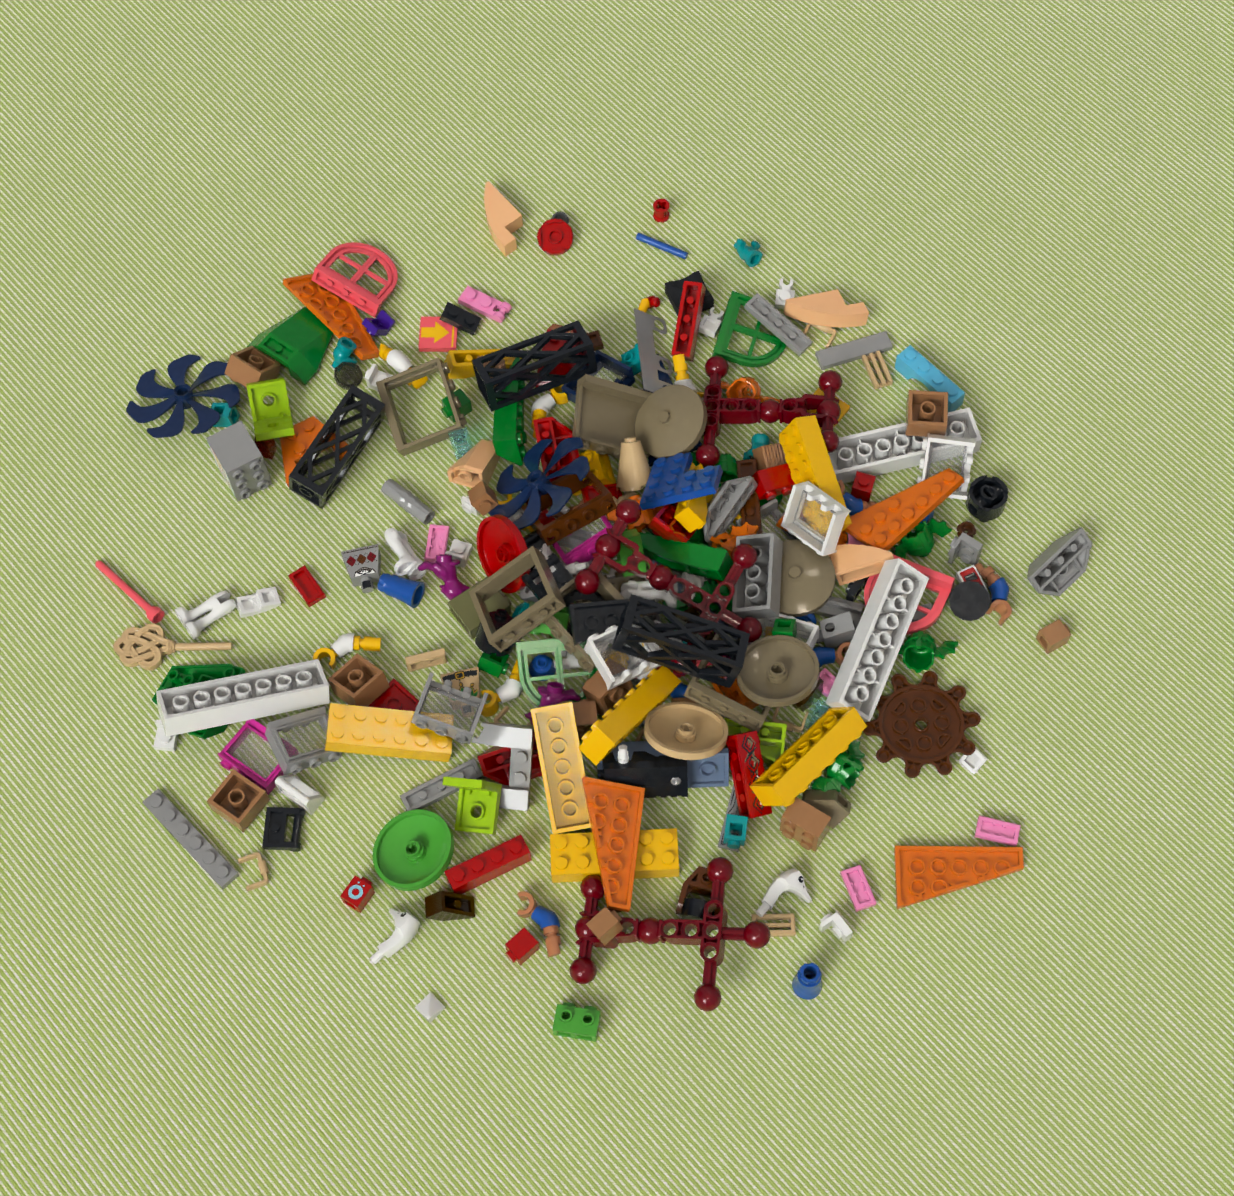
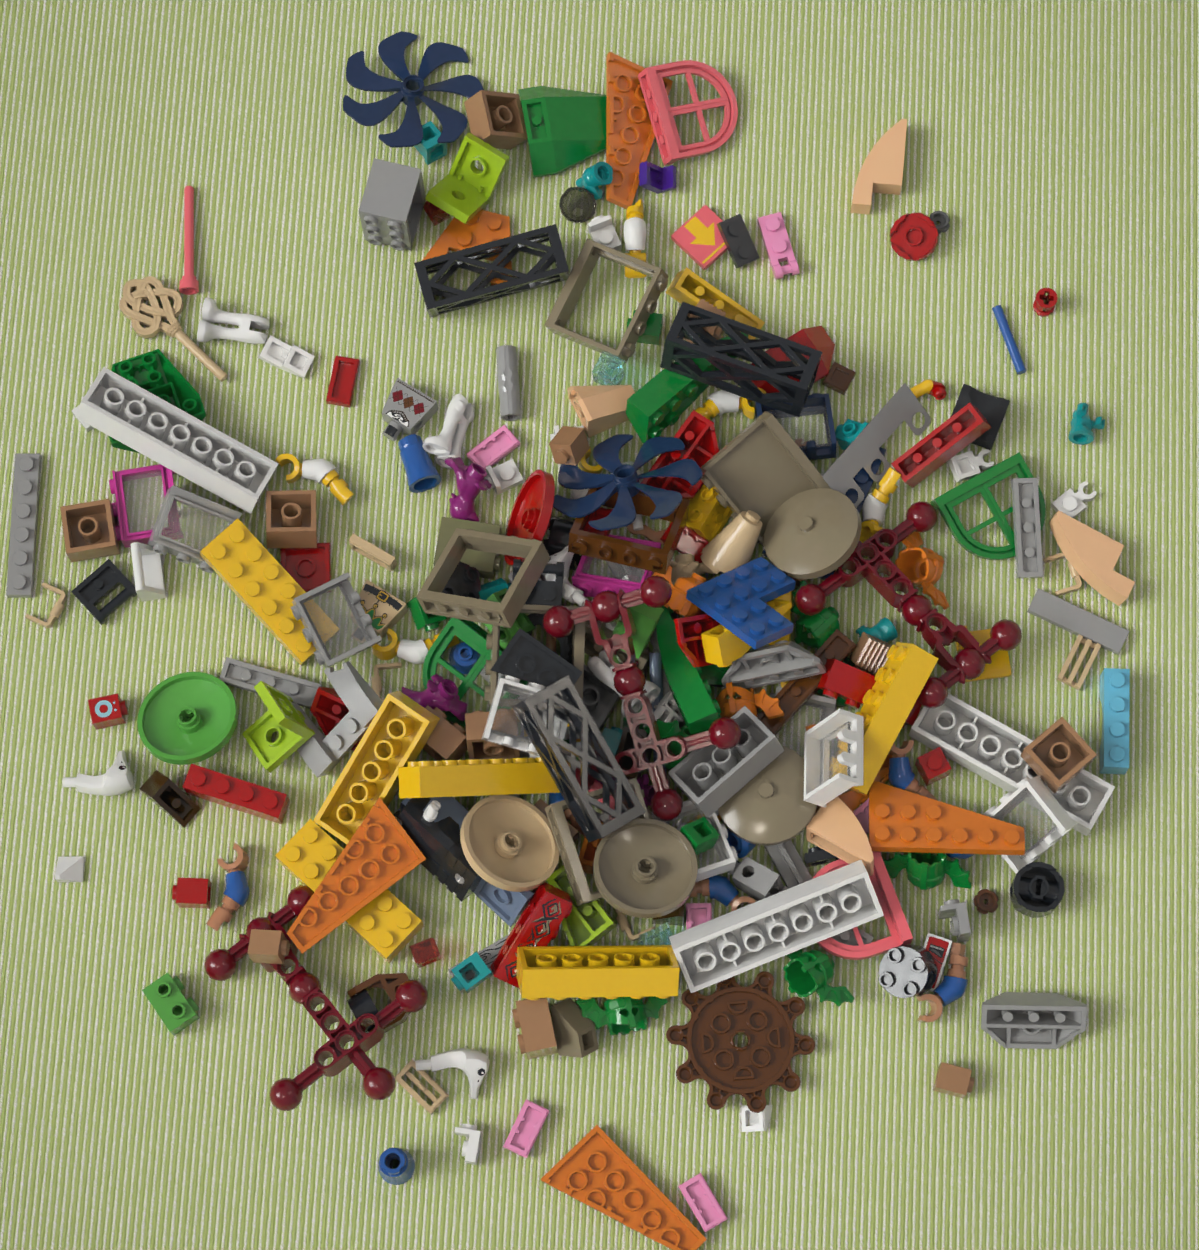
camera: 45 degrees right, 10 degrees up
(695, 847) = (425, 952): none -> clear red slope

